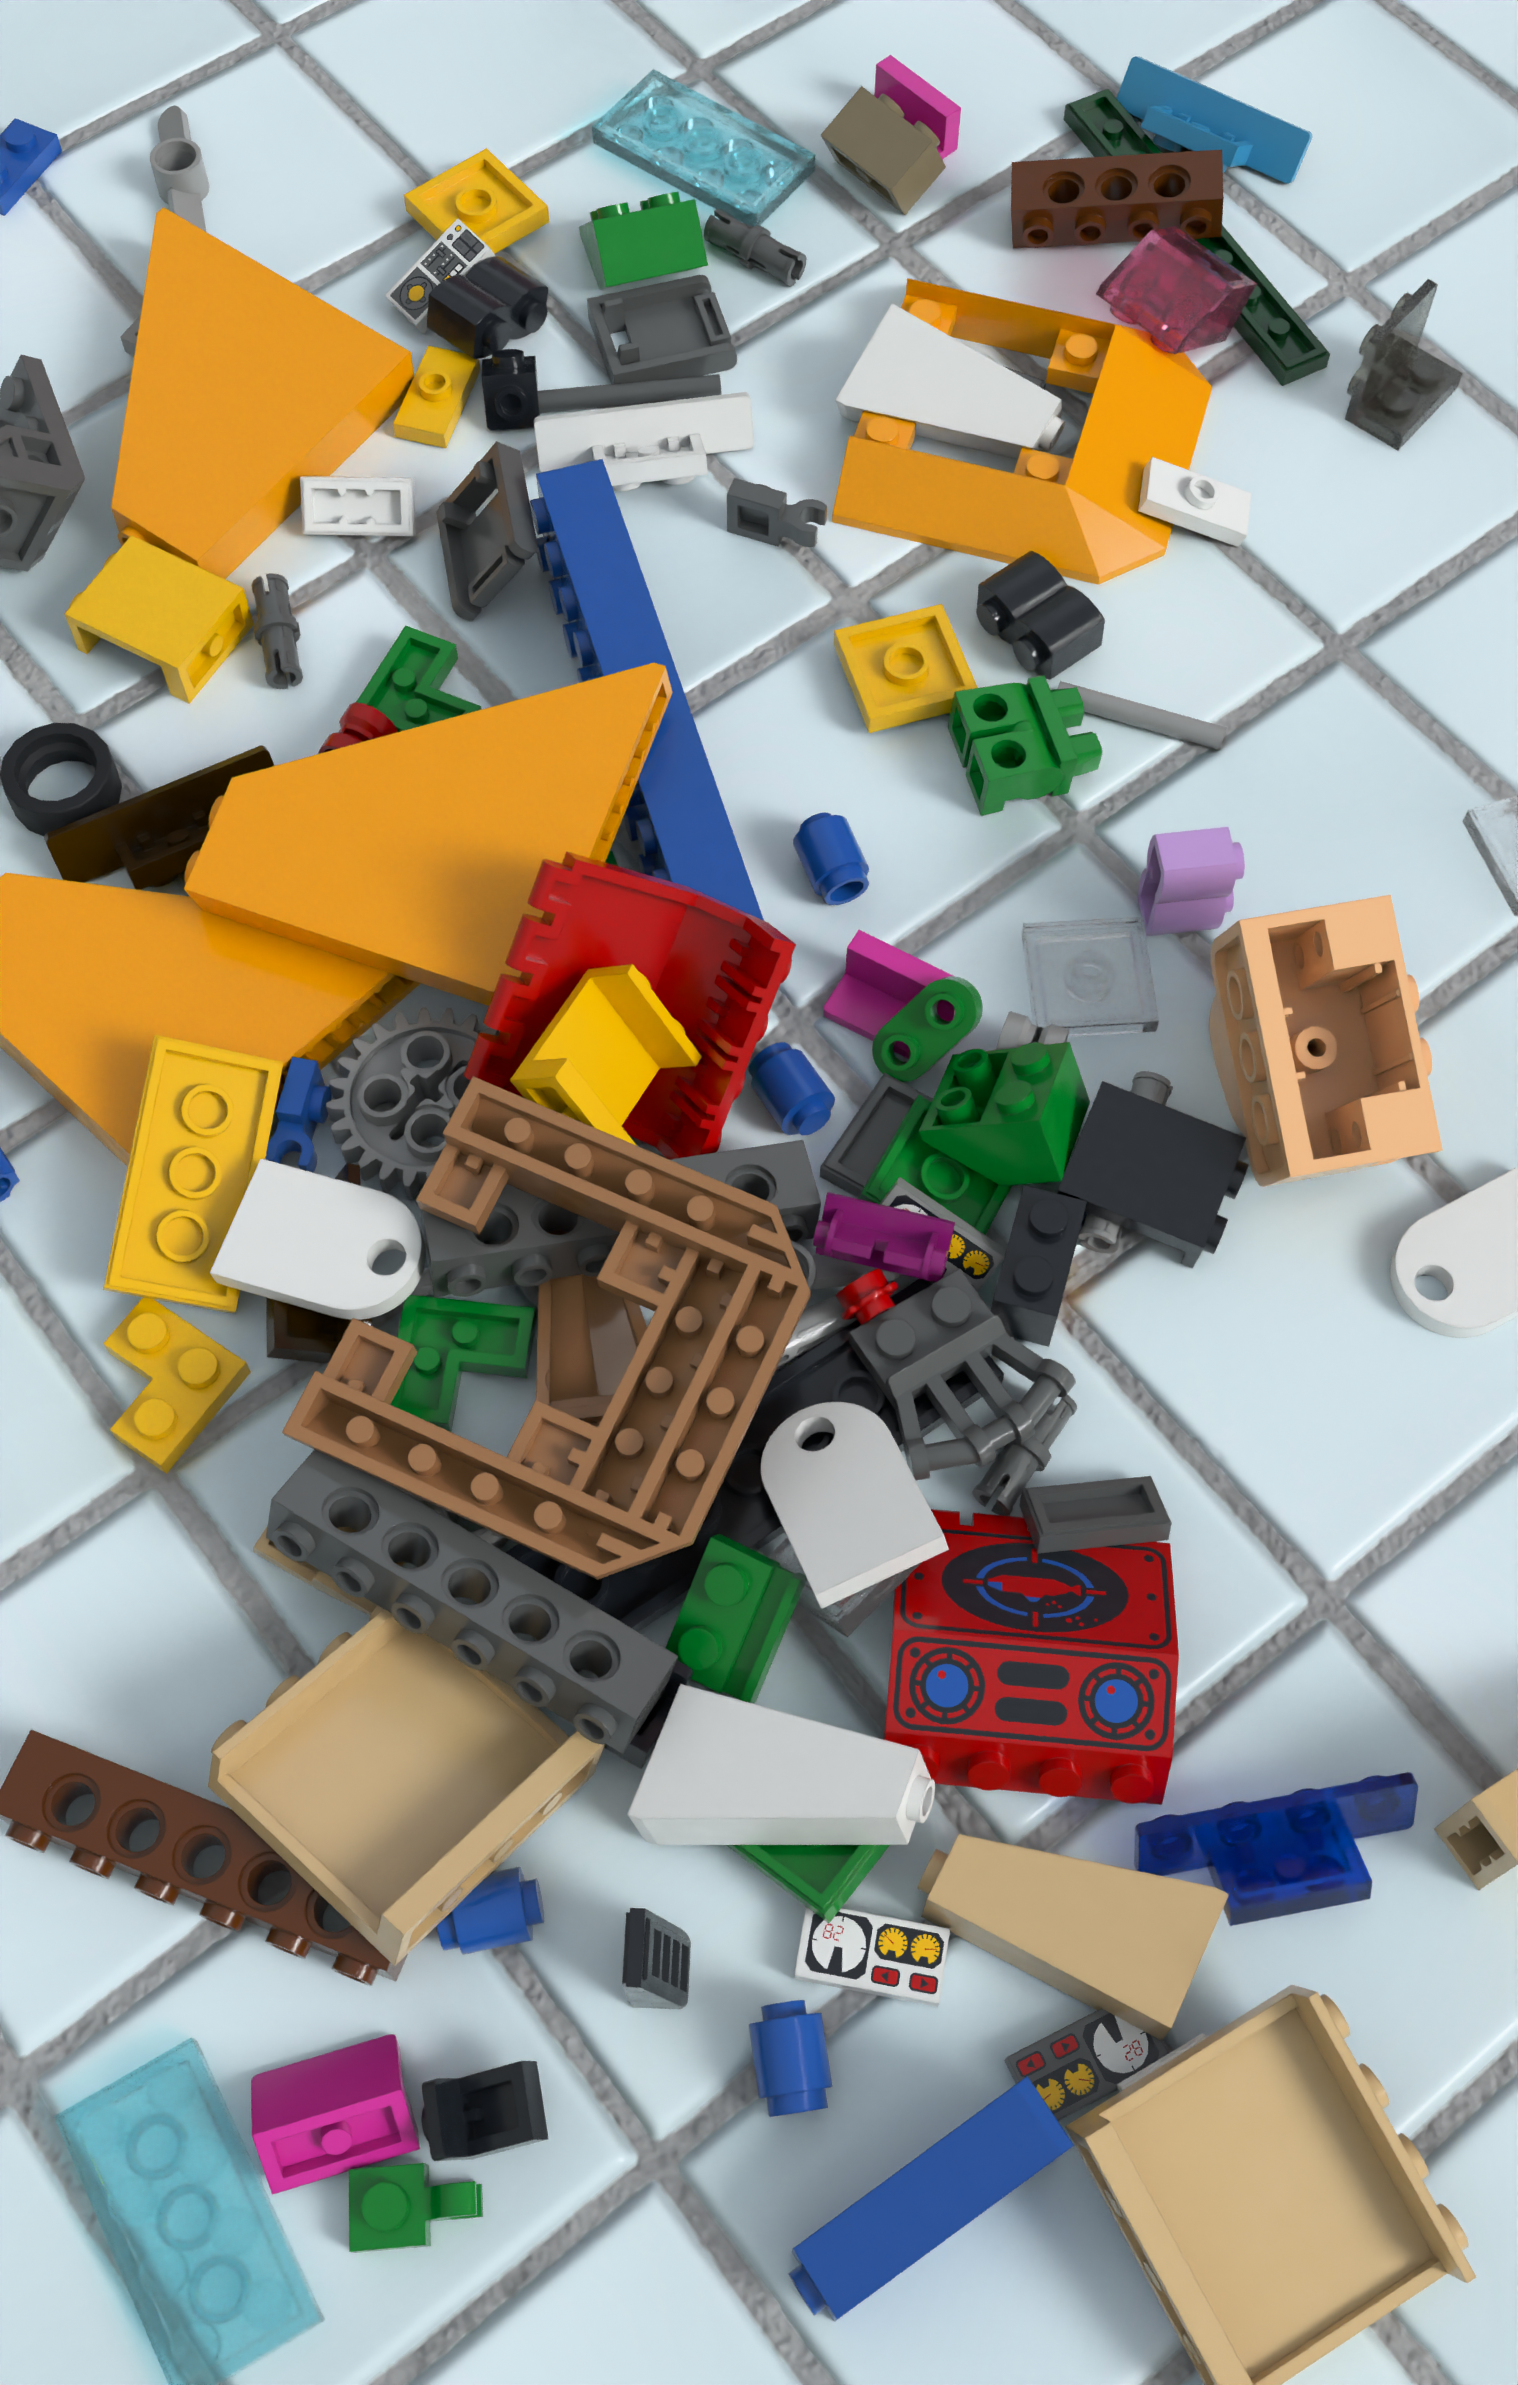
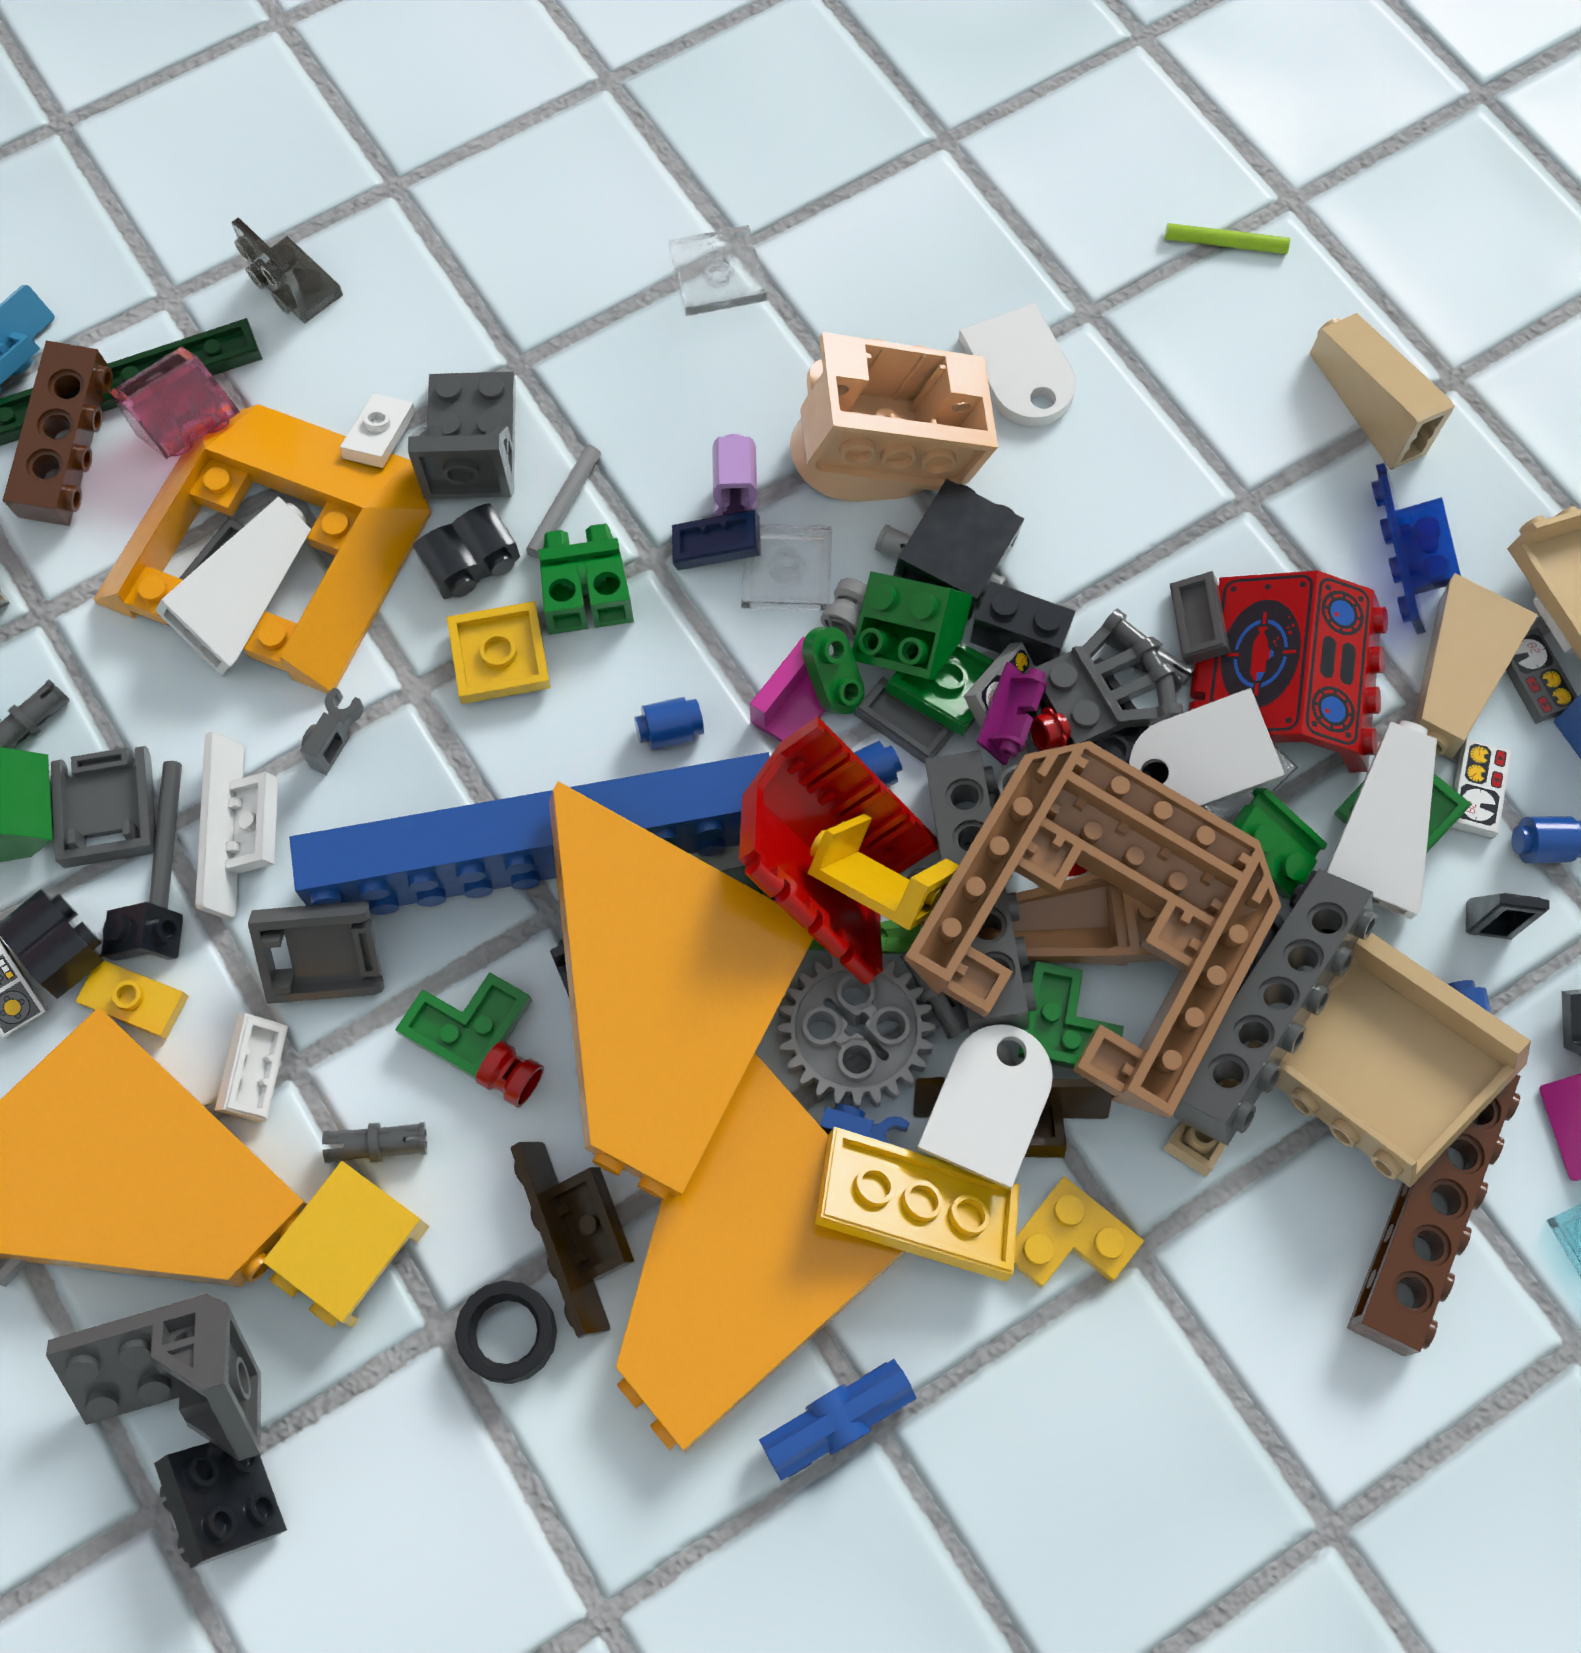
camera: 85 degrees left, 5 degrees up
(1109, 884) = (716, 540): none -> dark blue plate
(1203, 604) = (467, 437): none -> dark grey bracket

